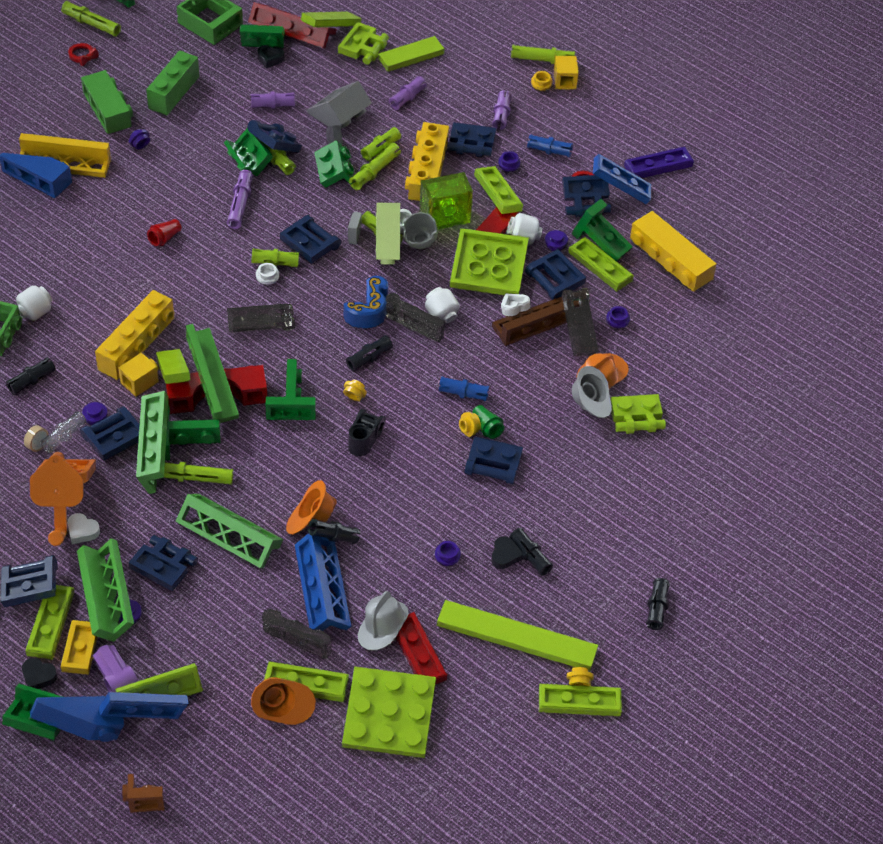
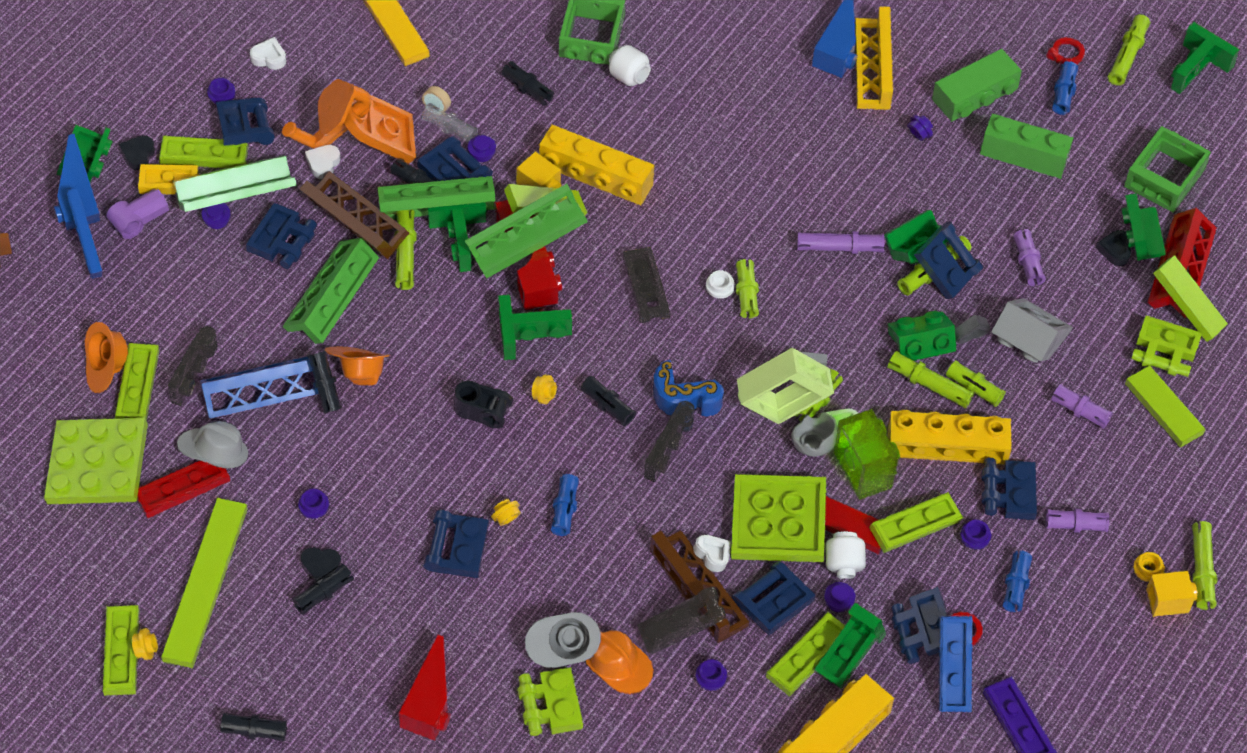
camera: 85 degrees right, 5 degrees up
(118, 57) = (1065, 88): none -> blue pin
(119, 460) = (409, 173): none -> black pin
(161, 233) = (766, 171): red cone -> none
(161, 506) = (348, 219): none -> reddish brown fence
(175, 682) = (116, 252): lime tile -> none
(306, 243) = (780, 314): dark blue plate -> none
(442, 304) = (694, 469): white head -> none
(491, 424) = (511, 532): green cone -> none
(632, 483) = (426, 704): none -> red slope

